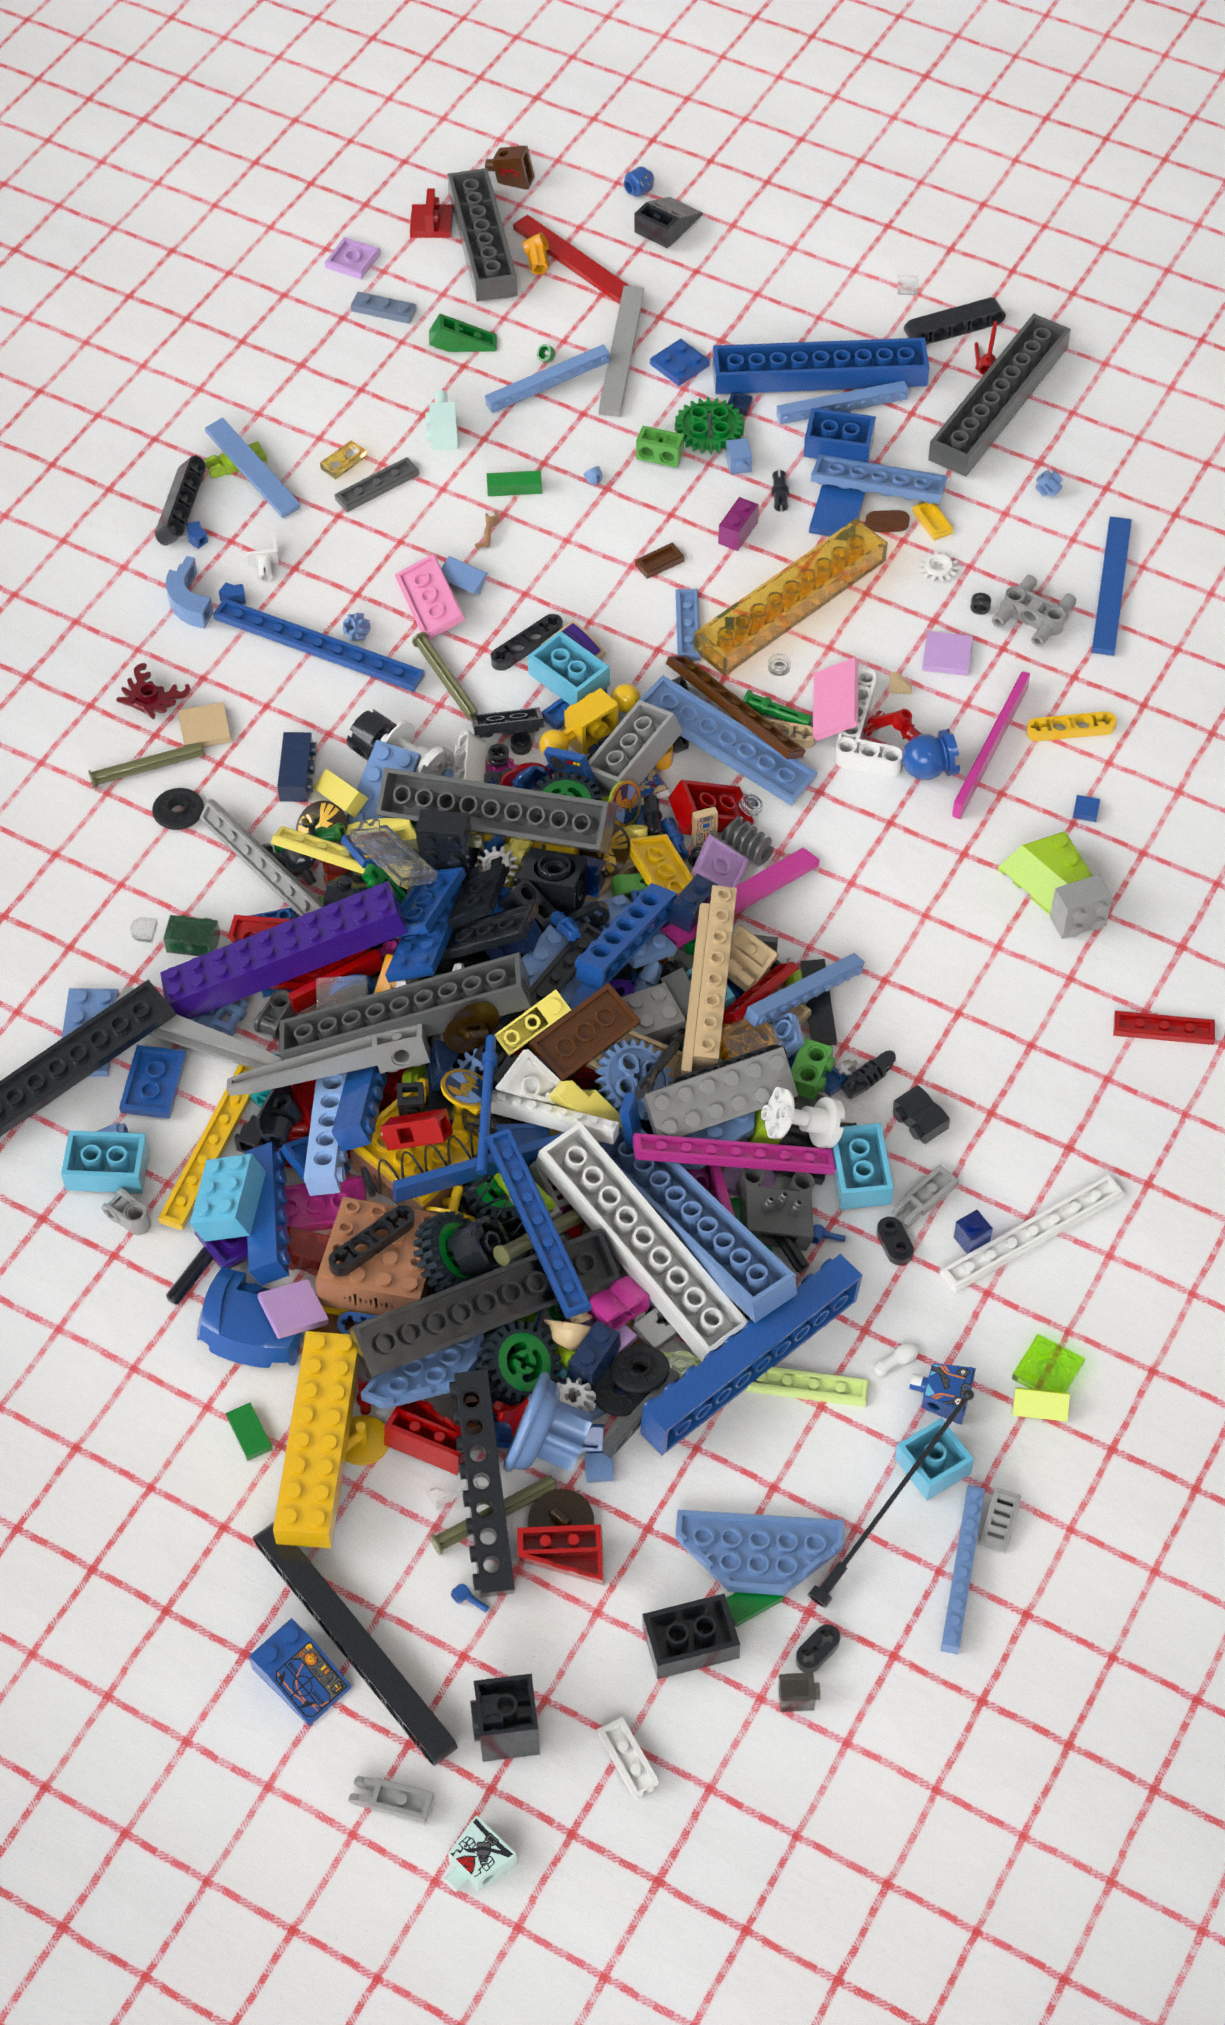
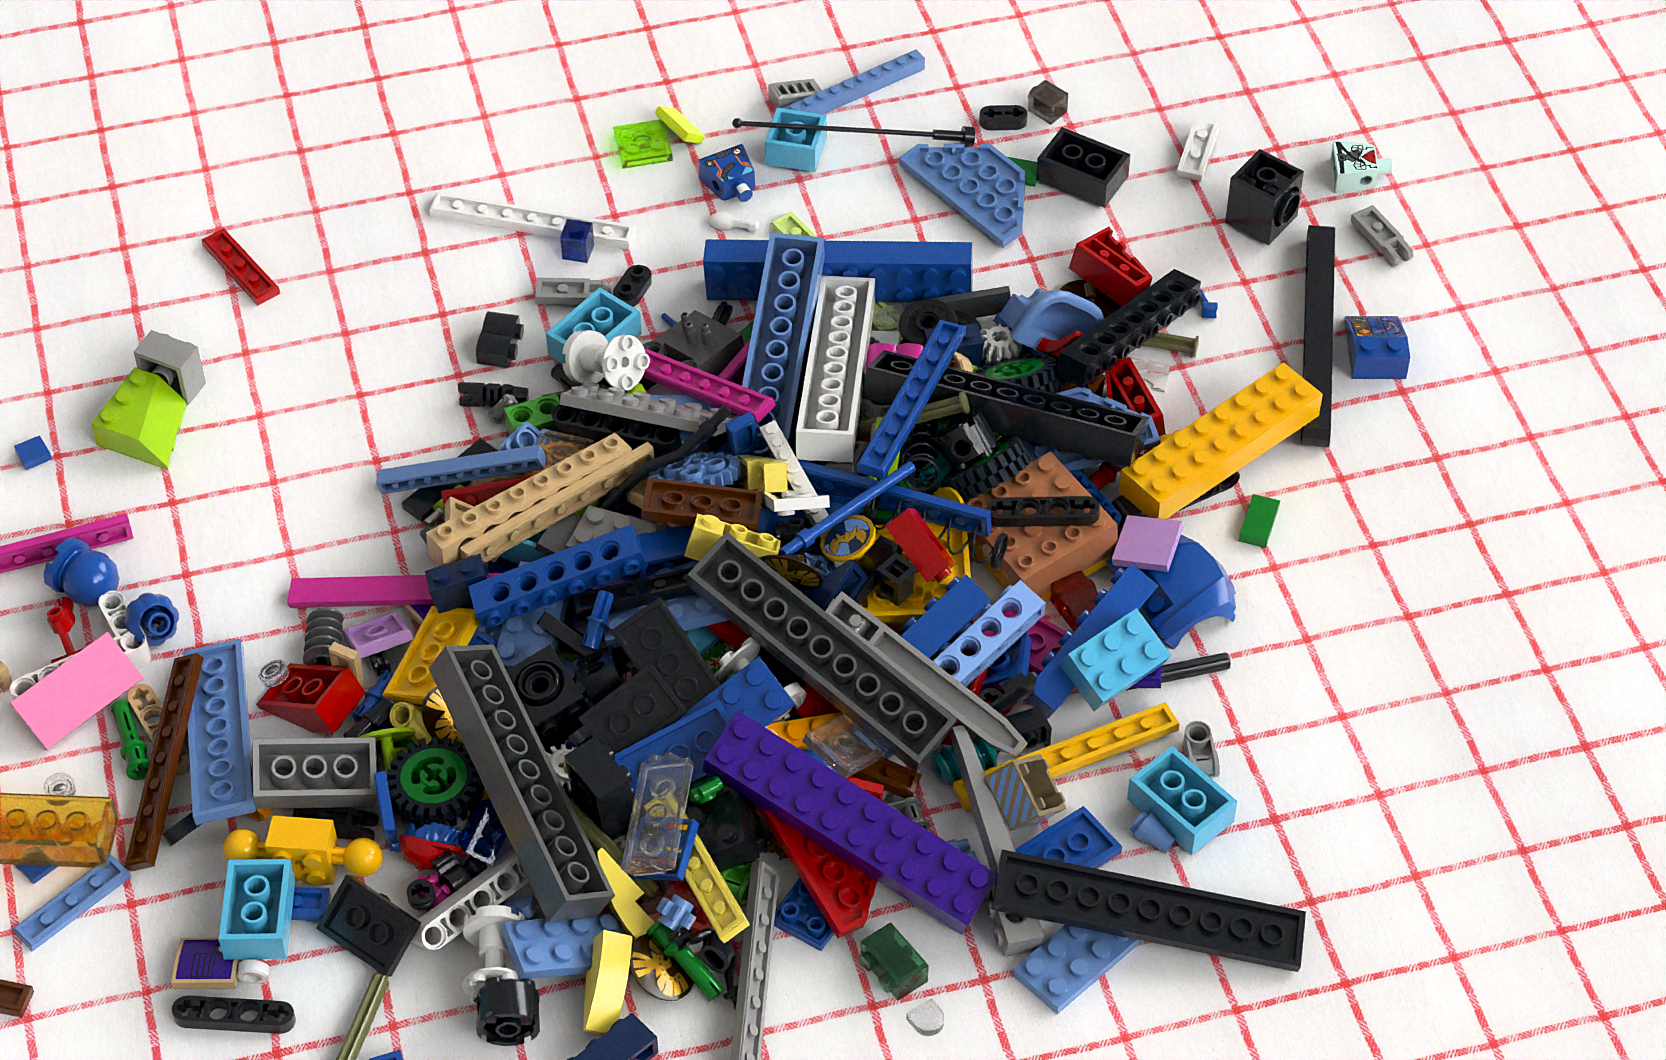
camera: 135 degrees left, 5 degrees down
(201, 1070) = (1025, 792): none -> dark tan container
(332, 827) = (676, 913): none -> medium blue gear
(858, 768) = (154, 615): none -> blue plant

